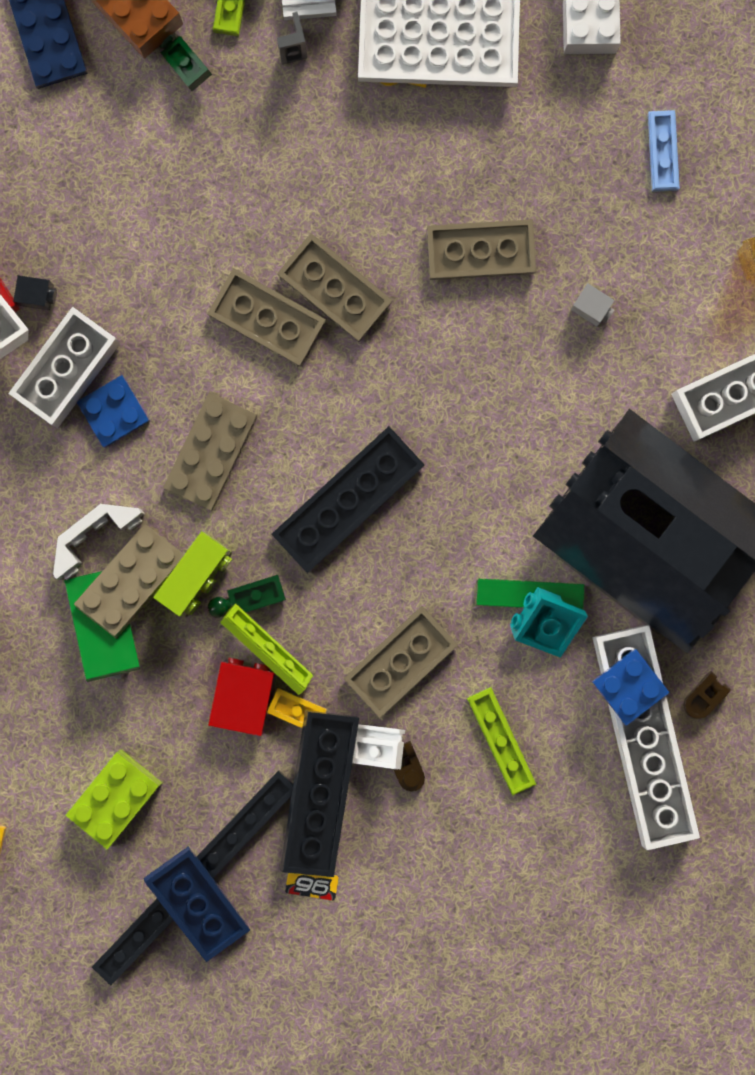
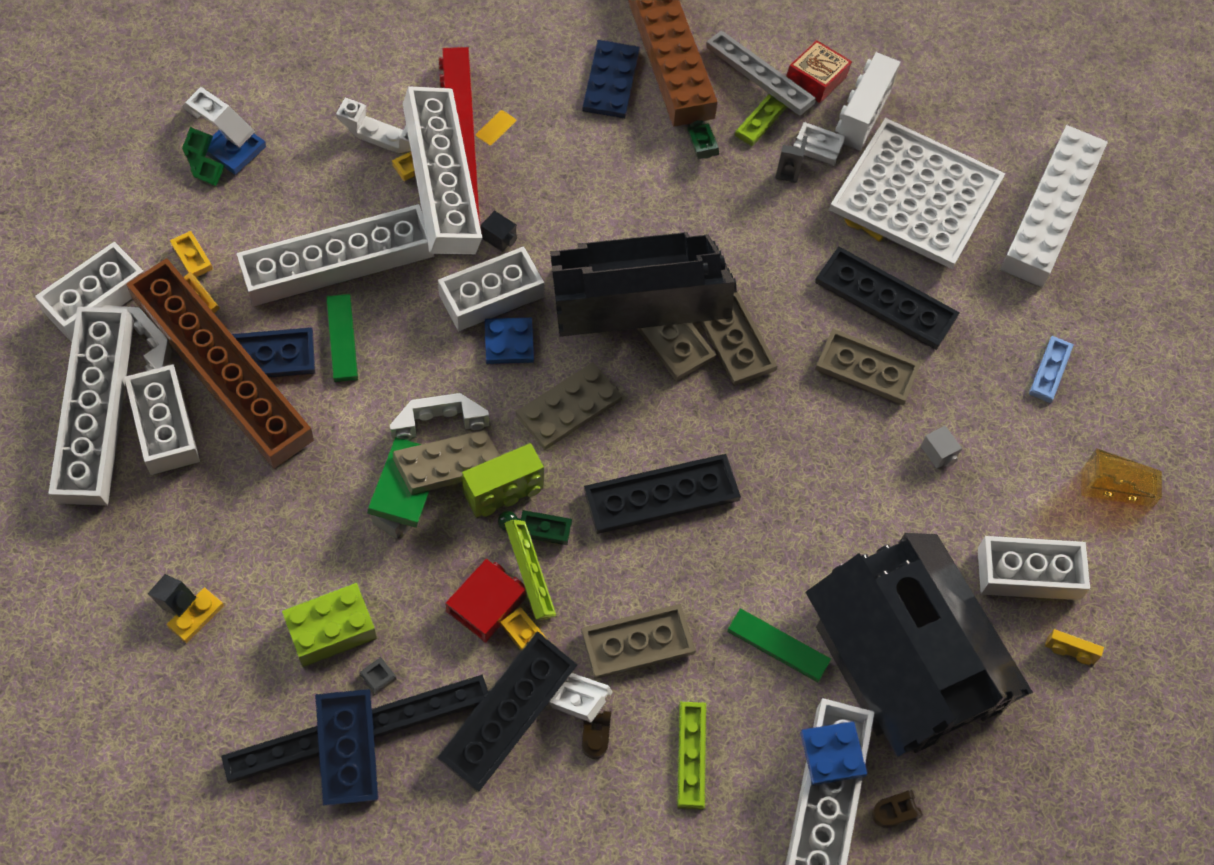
camera: 25 degrees right, 25 degrees down
(181, 276) = (641, 283): none -> black panel
(184, 818) = (377, 675): none -> dark grey tile
(312, 886) = (455, 792): sticker -> none
(464, 156) = (887, 297): none -> black plate
(547, 622) = (783, 670): teal plate -> none

